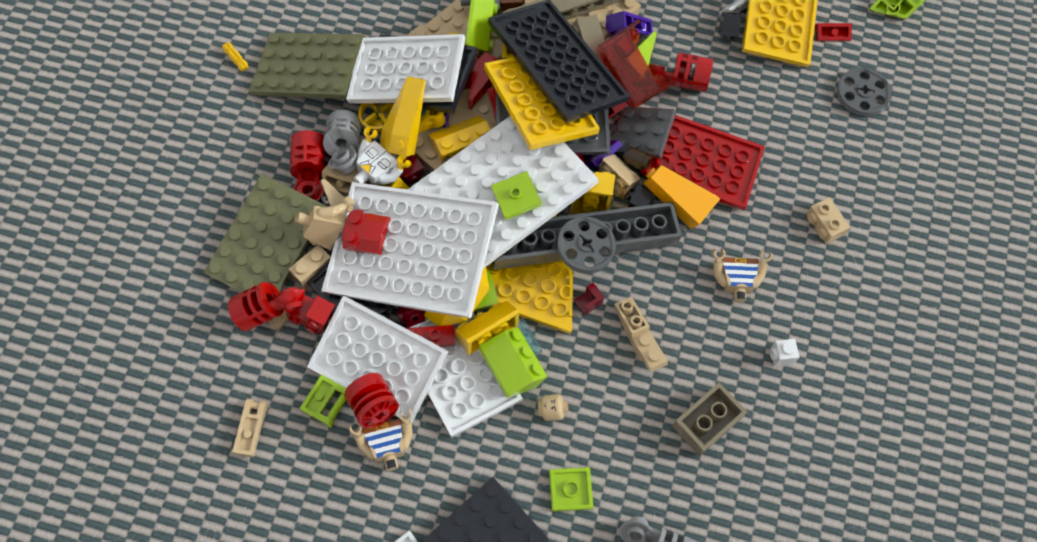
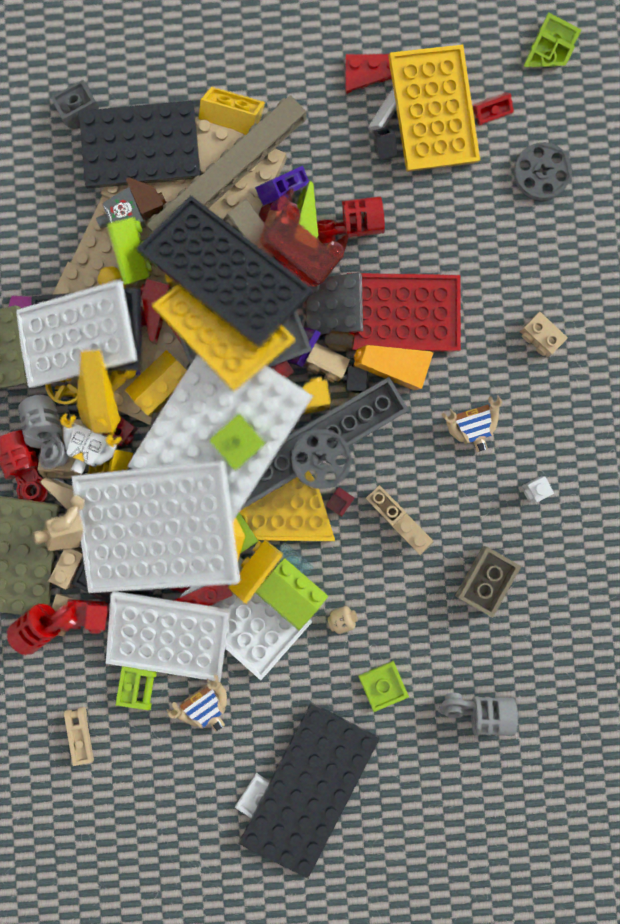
camera: 15 degrees left, 20 degrees up
(364, 232) = (105, 527): red slope -> none
(371, 400) = (174, 680): red wheel -> none

